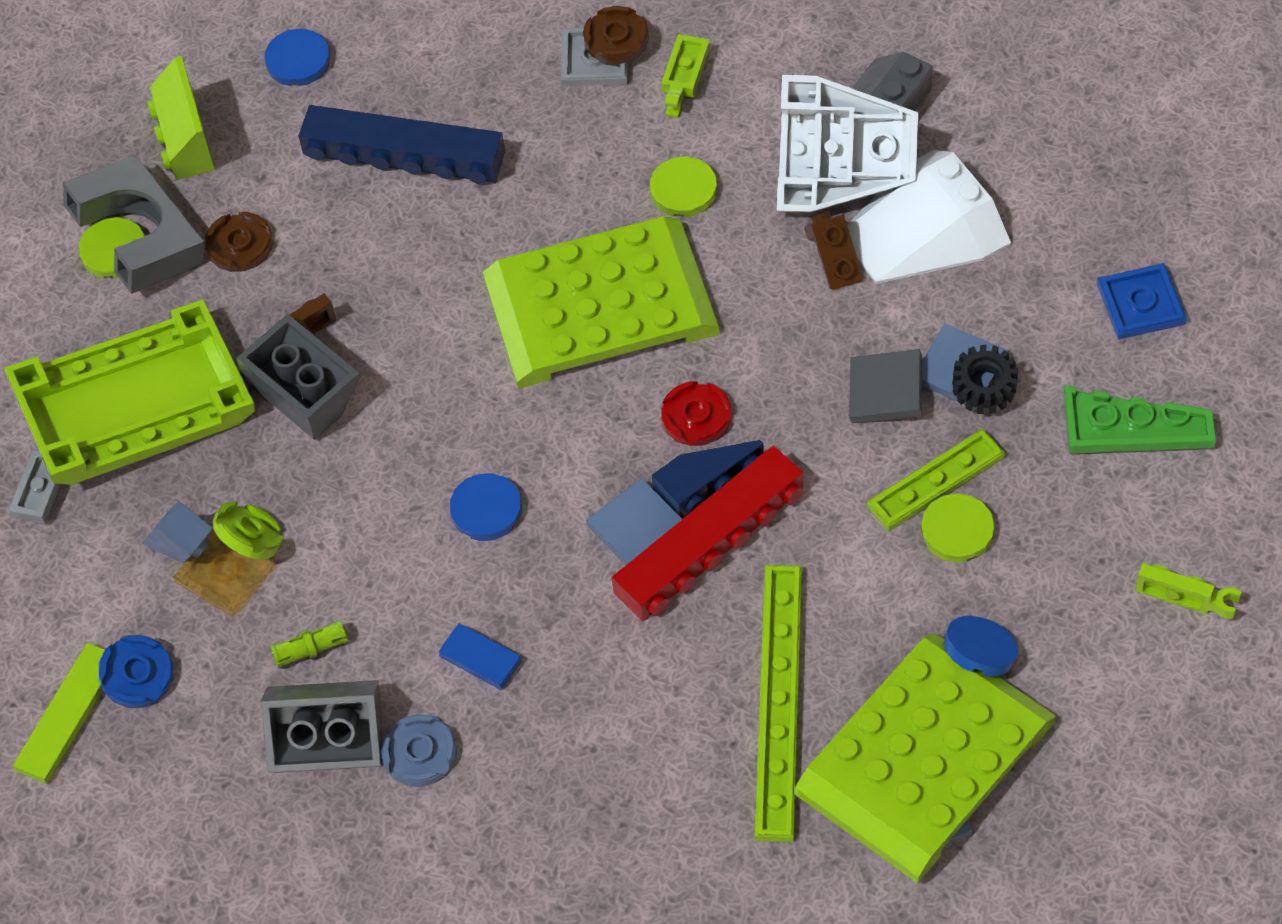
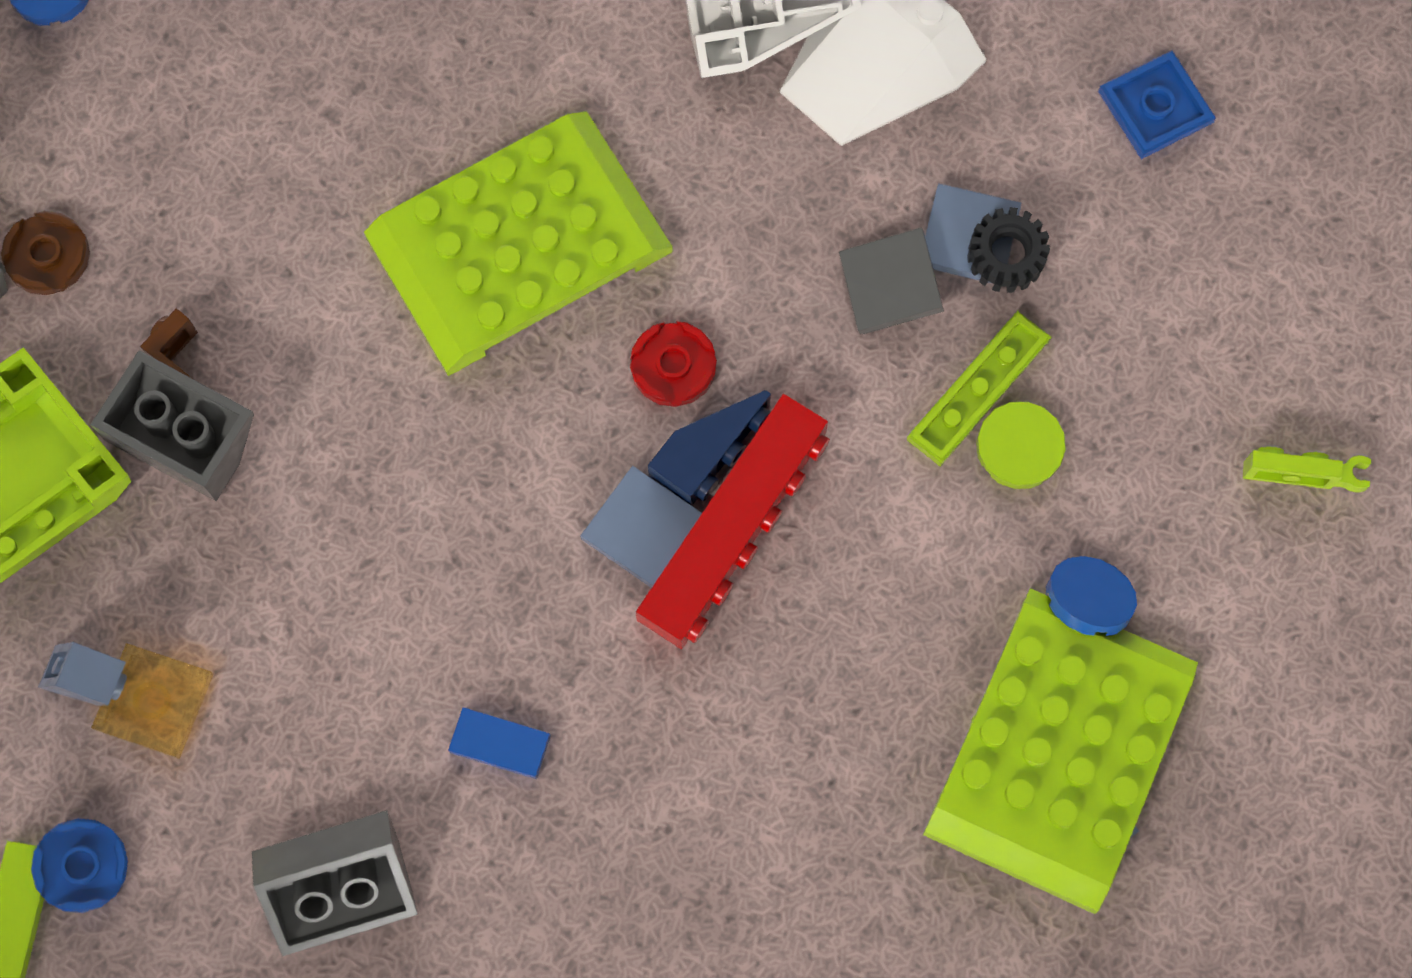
camera: 20 degrees left, 15 degrees up
(247, 530) = (168, 649): lime tile -> none
(308, 644) = (285, 777): lime pin -> none
(402, 144) = (214, 80): dark blue brick -> none
(415, 761) = (473, 892): sand blue tile -> none
(485, 506) = (452, 544): blue tile -> none
(683, 186) = (577, 65): lime tile -> none
(778, 704) = (871, 720): lime tile -> none
(835, 249) = (783, 112): reddish brown bracket -> none
(1122, 425) = (1175, 271): bright green wing -> none

